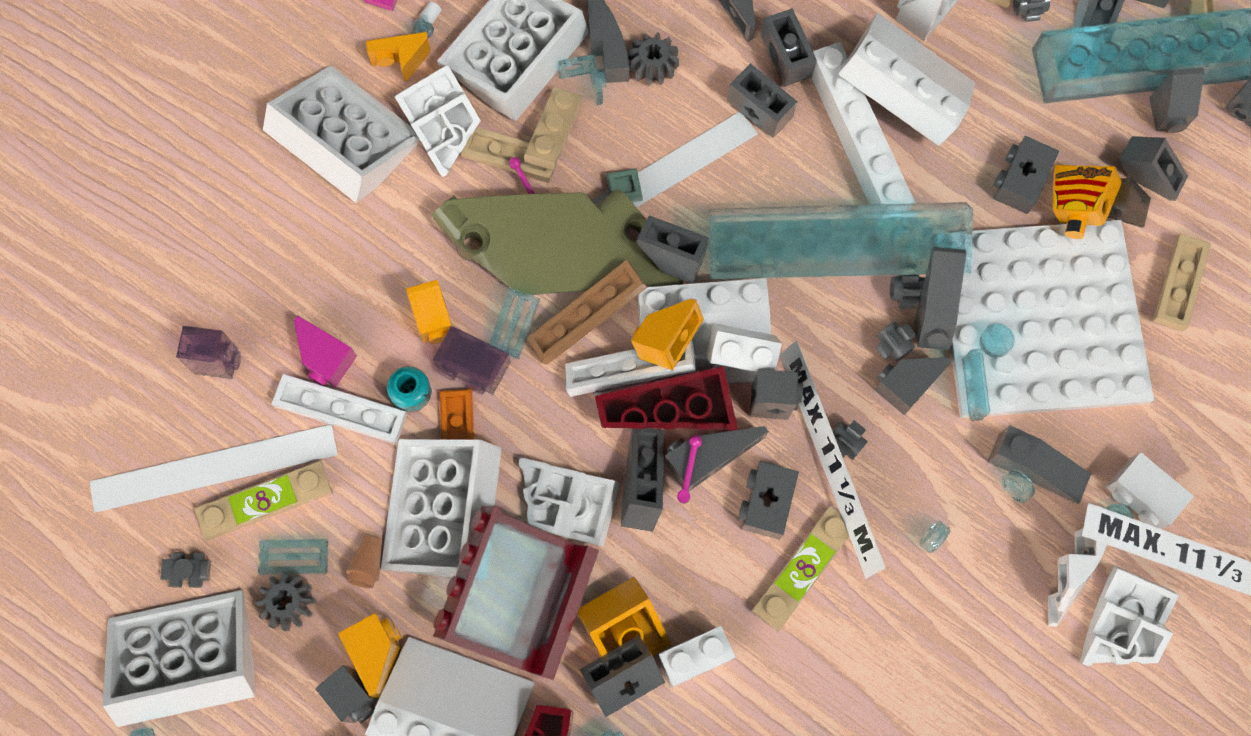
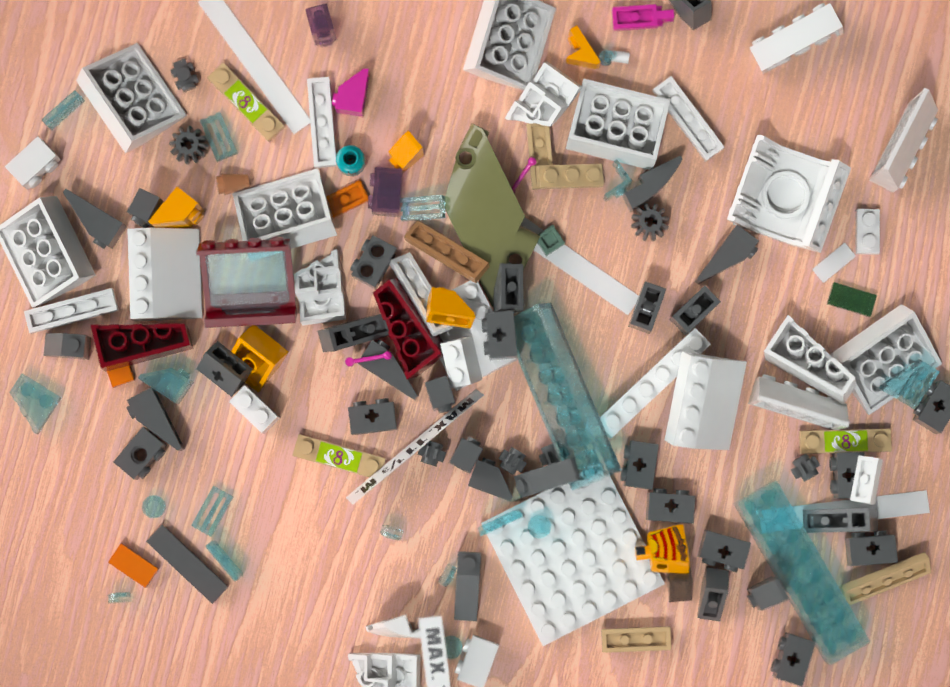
camera: 70 degrees right, 10 degrees up
(565, 410) = (379, 264): none -> dark grey brick
(722, 266) = (507, 347): none -> dark grey brick
(869, 392) = (466, 454): none -> dark grey brick
(951, 175) = (645, 476): none -> dark grey brick
(1109, 119) = (737, 550): none -> dark grey brick

